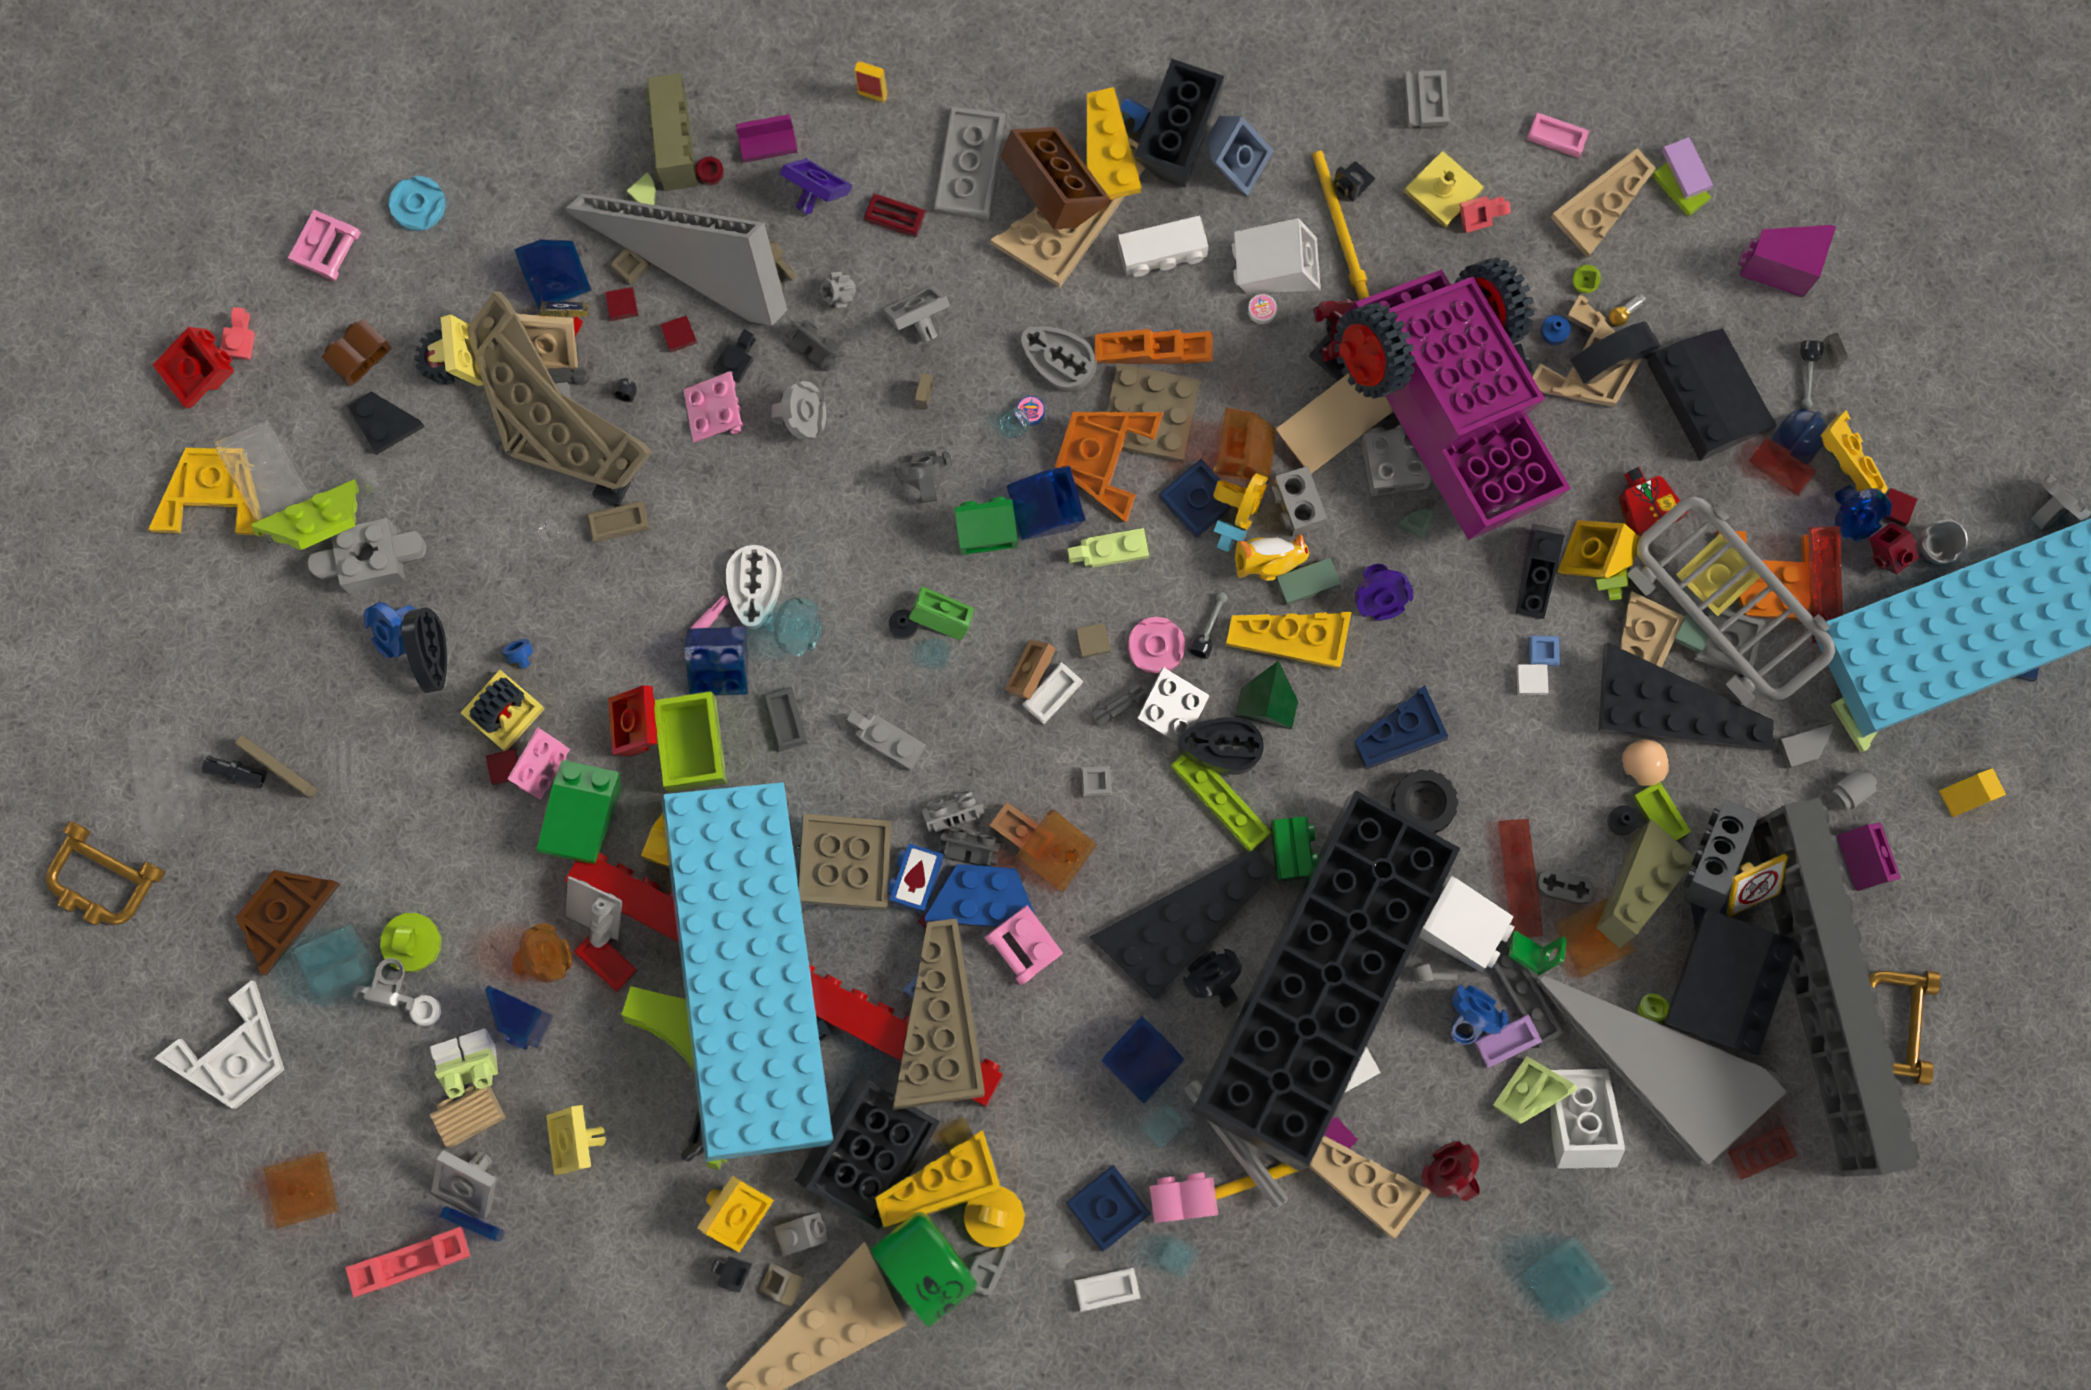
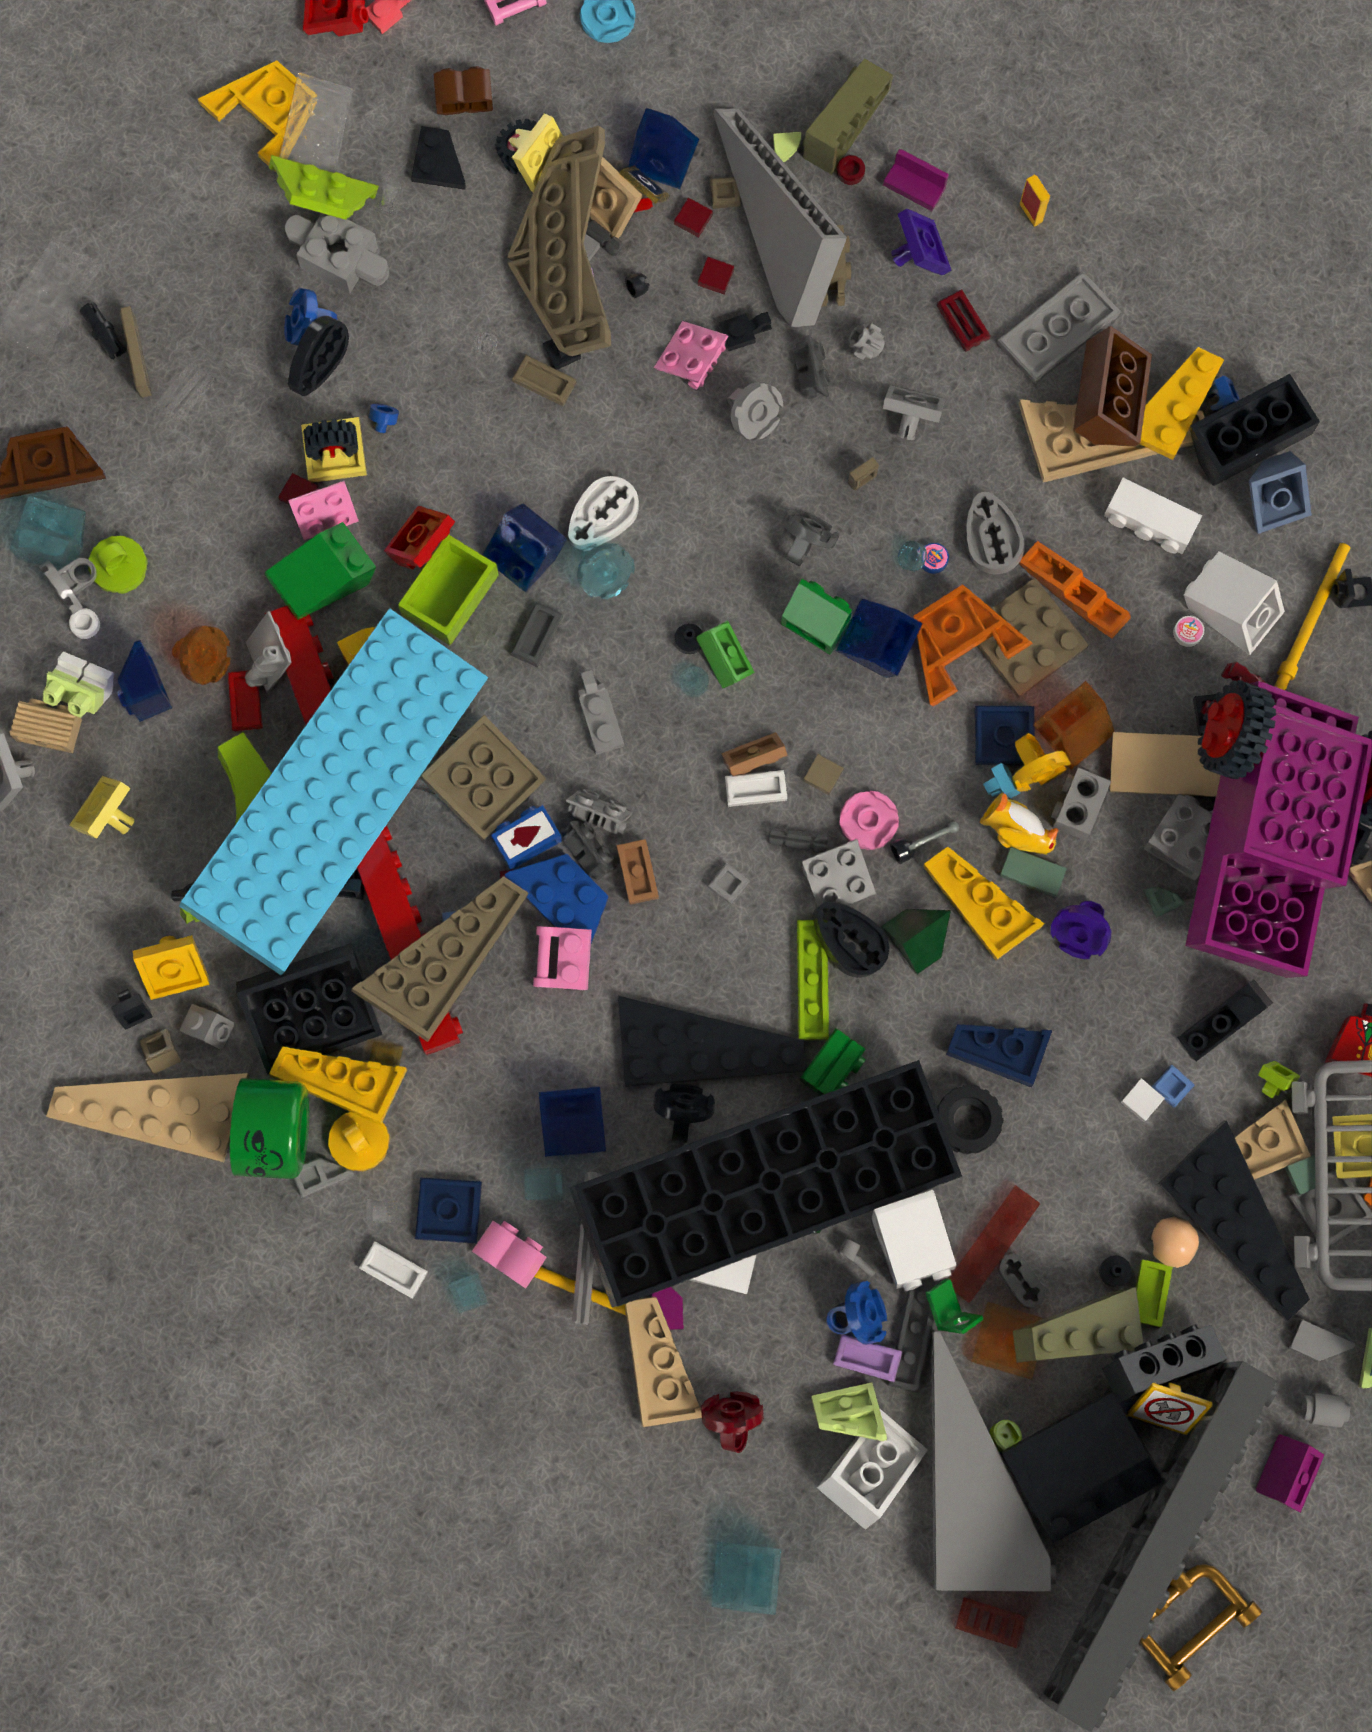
camera: 40 degrees right, 0 degrees up
(712, 613) = (551, 509): bright pink pin -> none
(1056, 850) = (650, 908): clear orange tile -> none
(1110, 549) = (900, 716): yellowish green hinge -> none
(1599, 549) = (1289, 1045): yellow slope -> none

